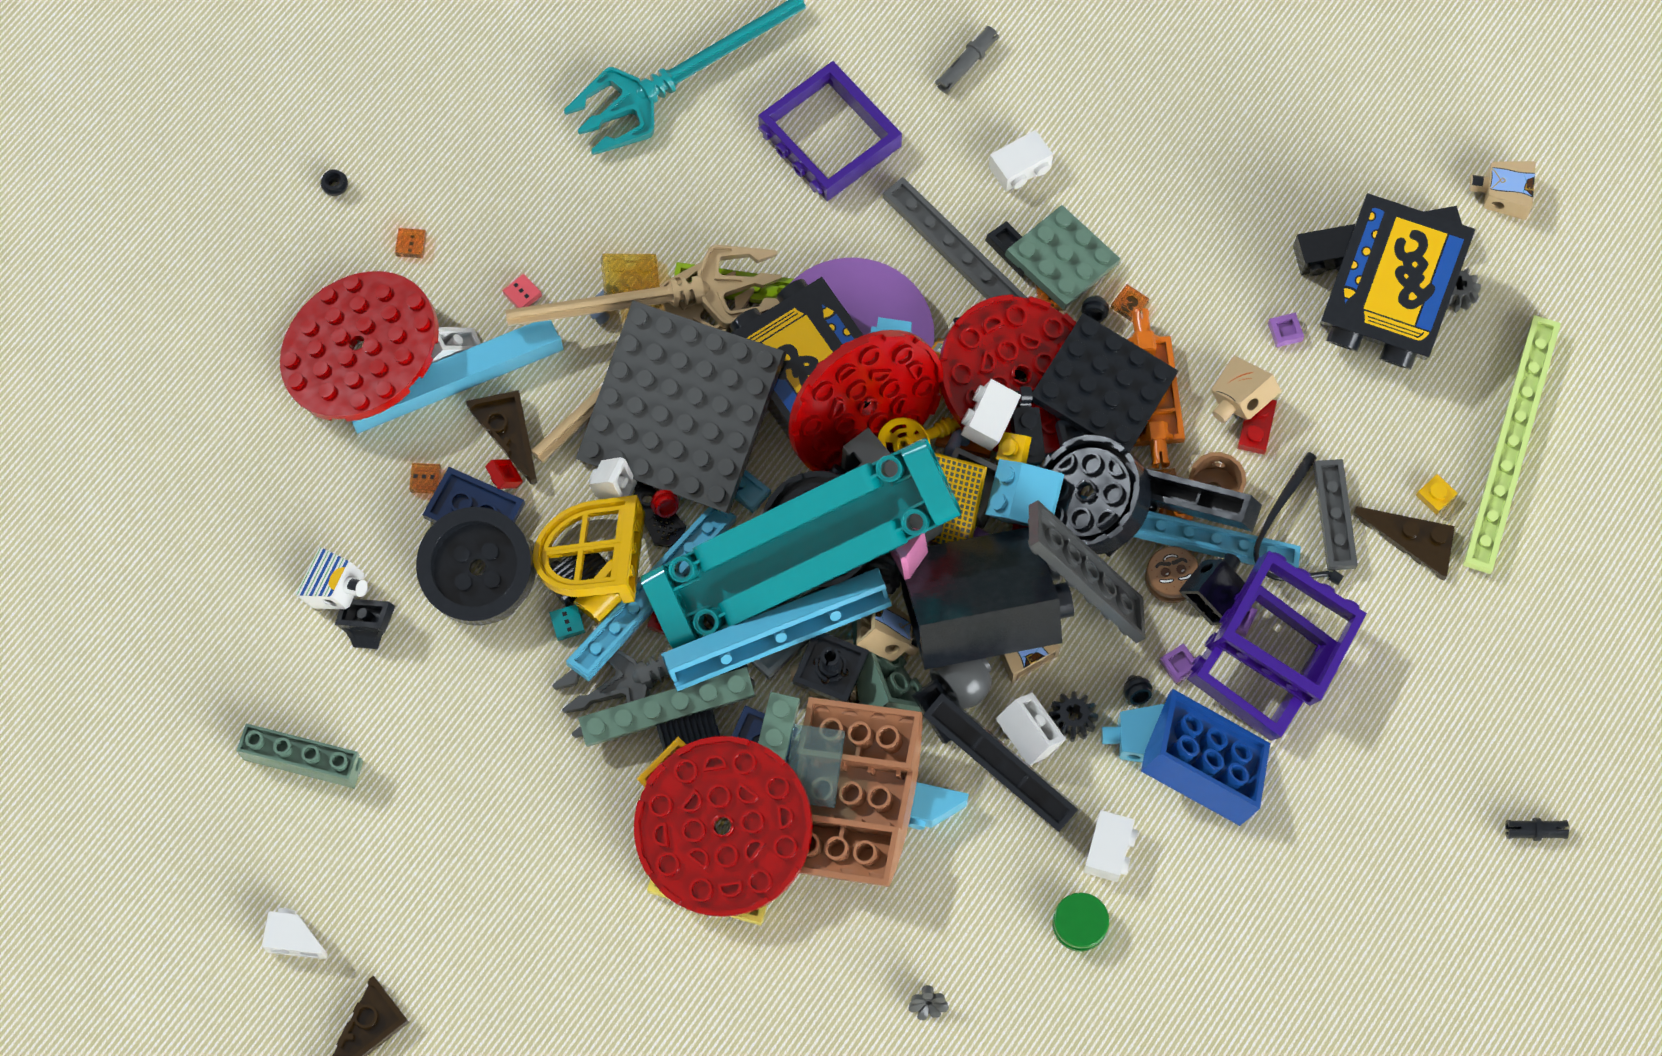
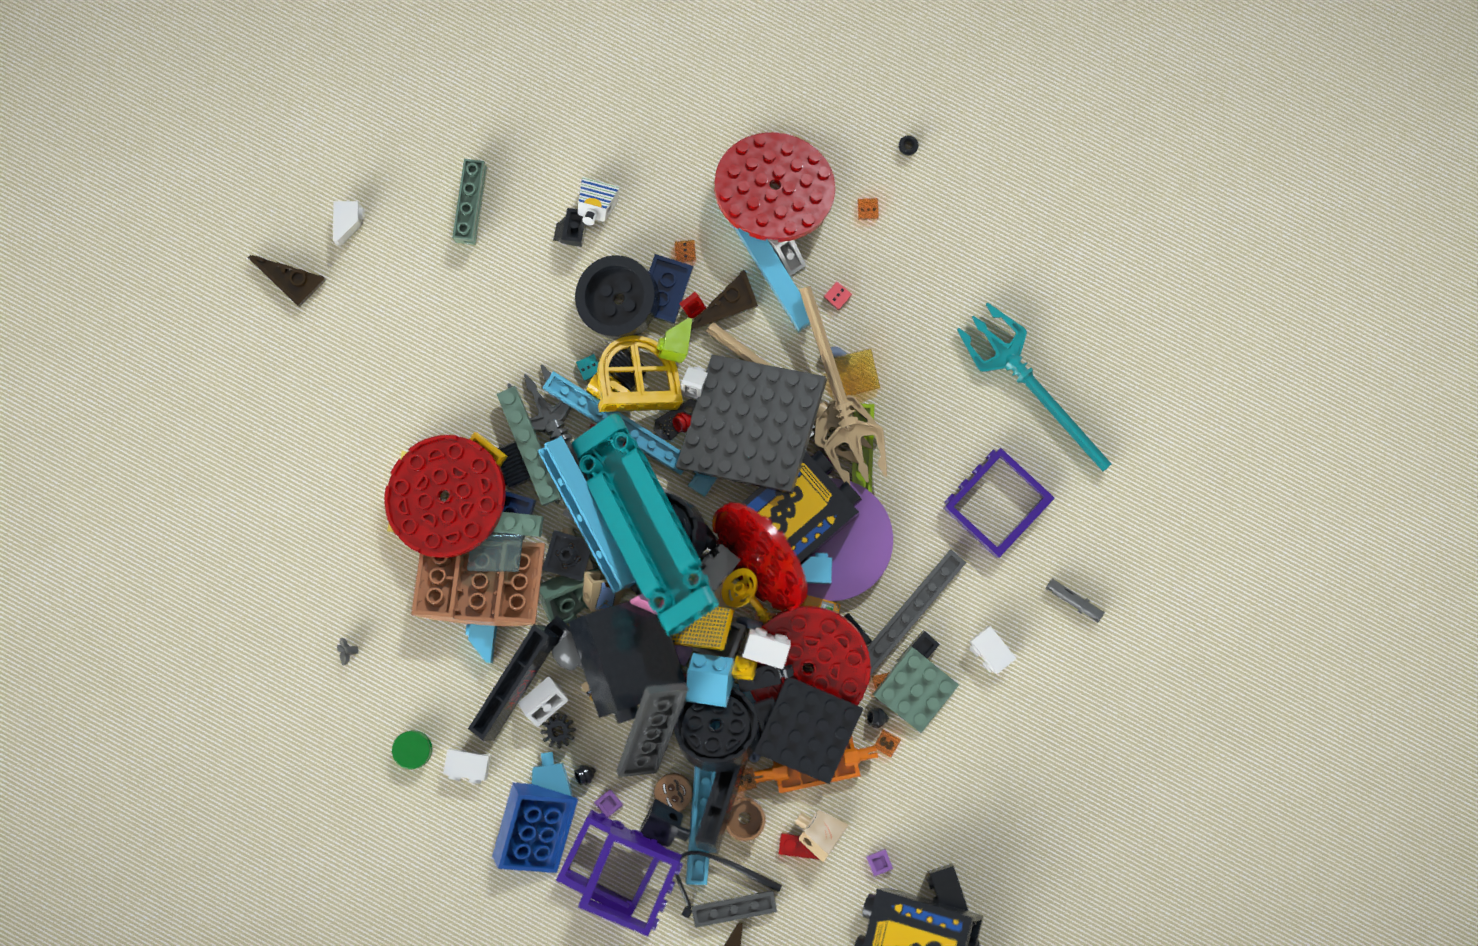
camera: 80 degrees right, 15 degrees up
(553, 495) = (675, 342): none -> lime slope

